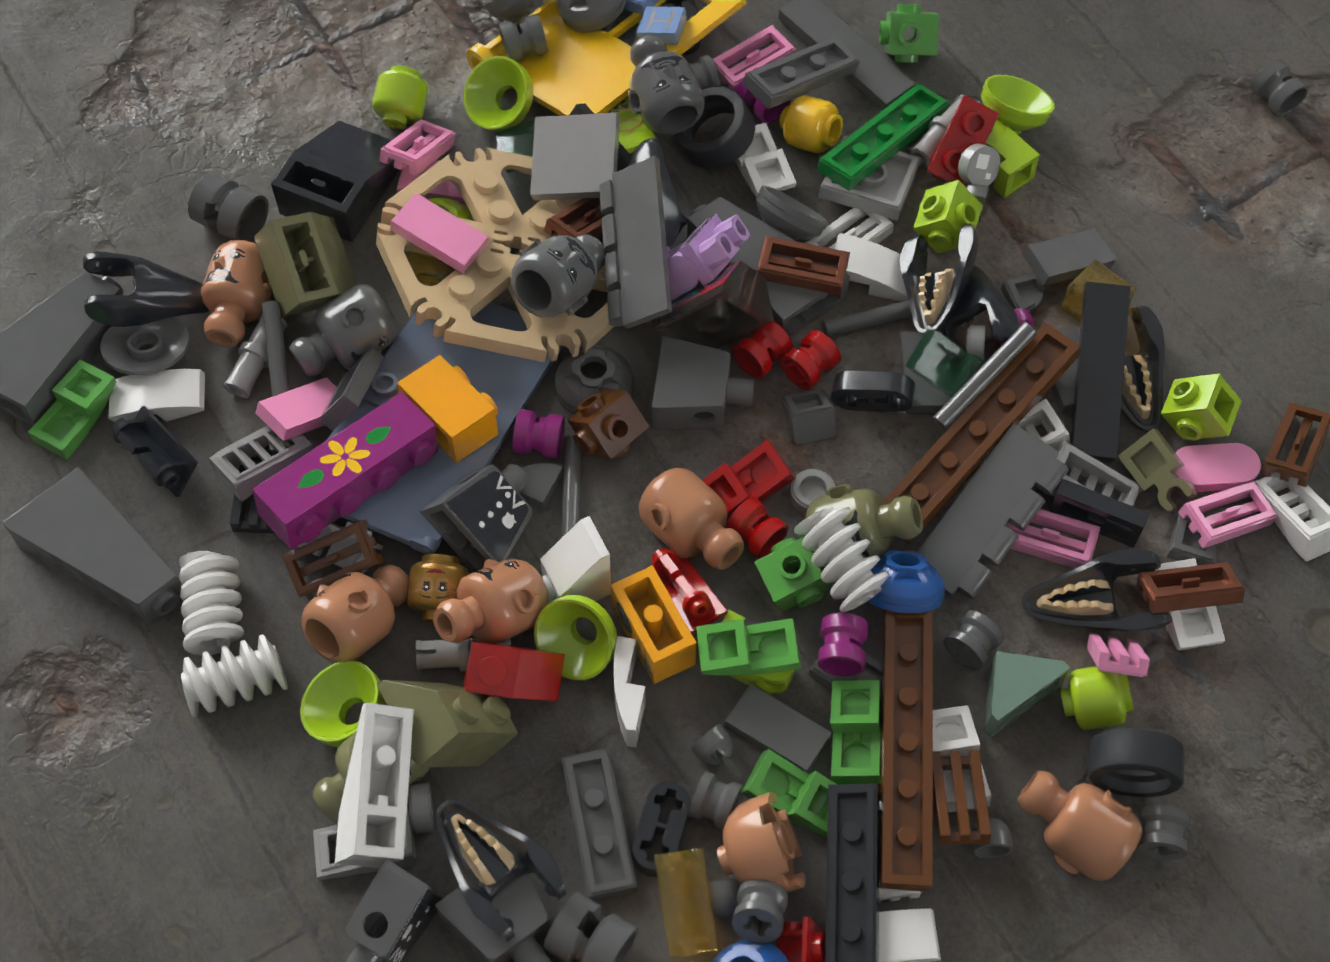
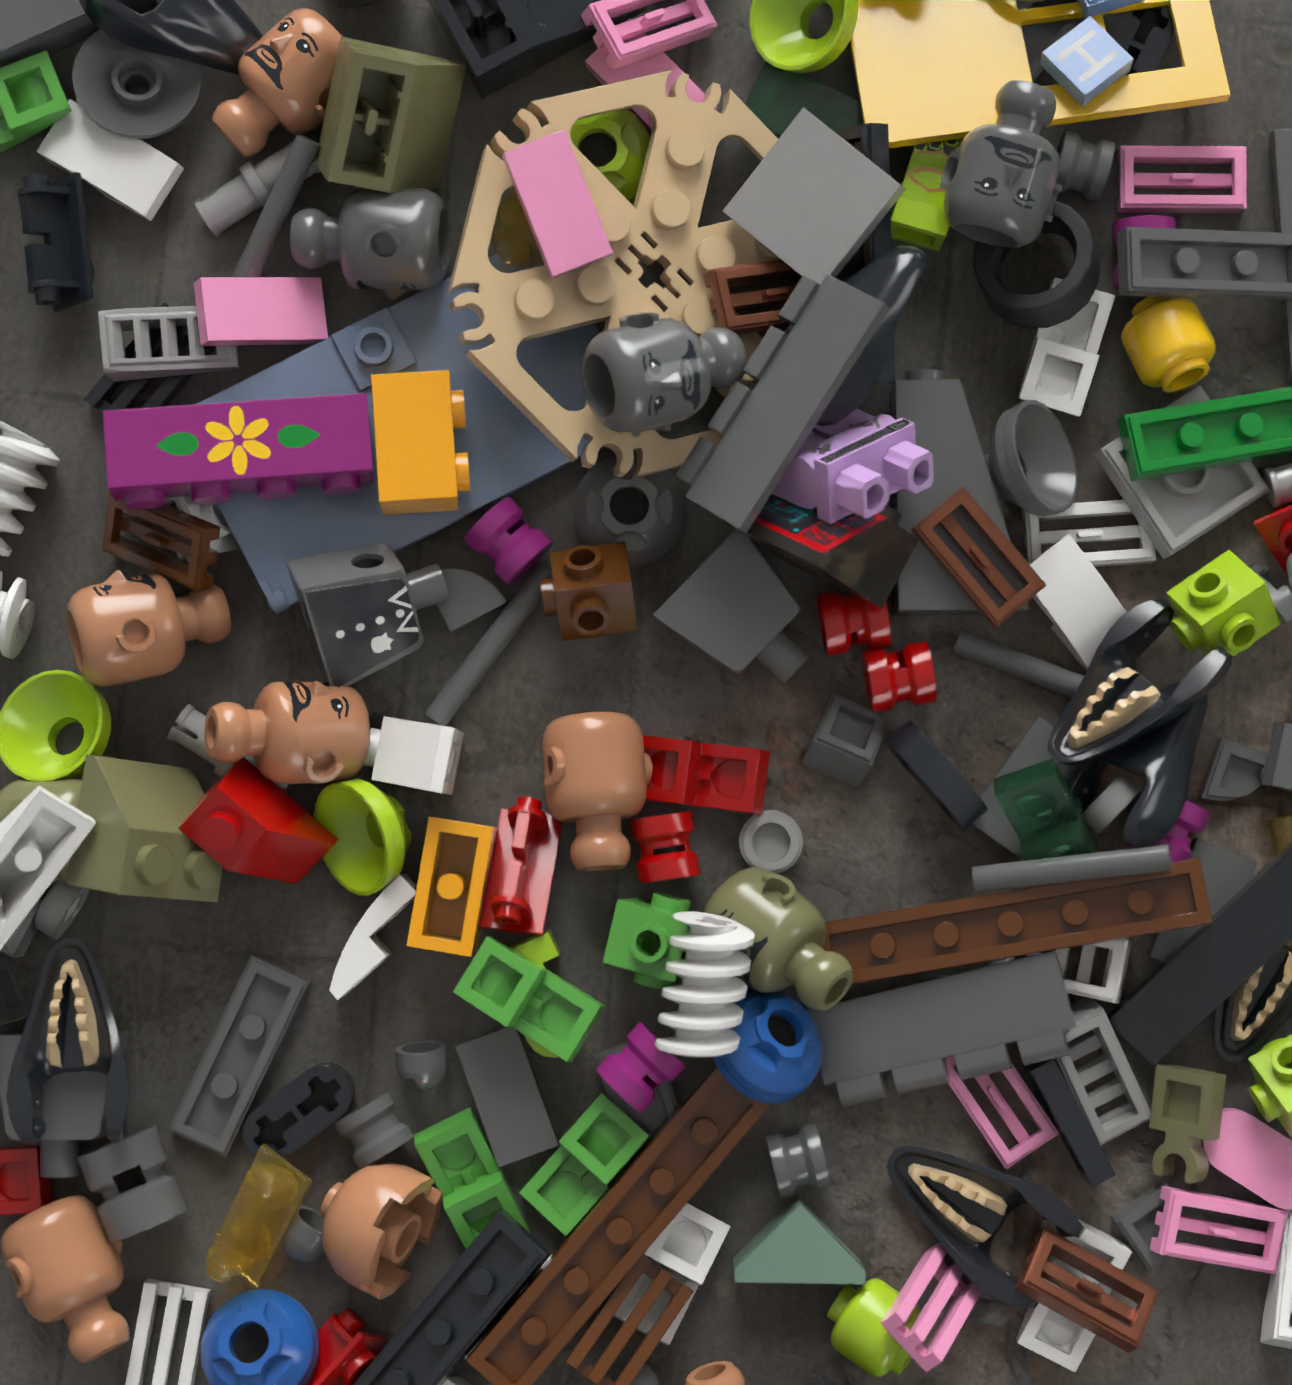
camera: 40 degrees right, 25 degrees up
(351, 389) = (326, 330): dark grey tile -> none
(433, 582) = (255, 653): pearl gold head -> none
(760, 911) = (318, 1293): dark grey wheel -> none

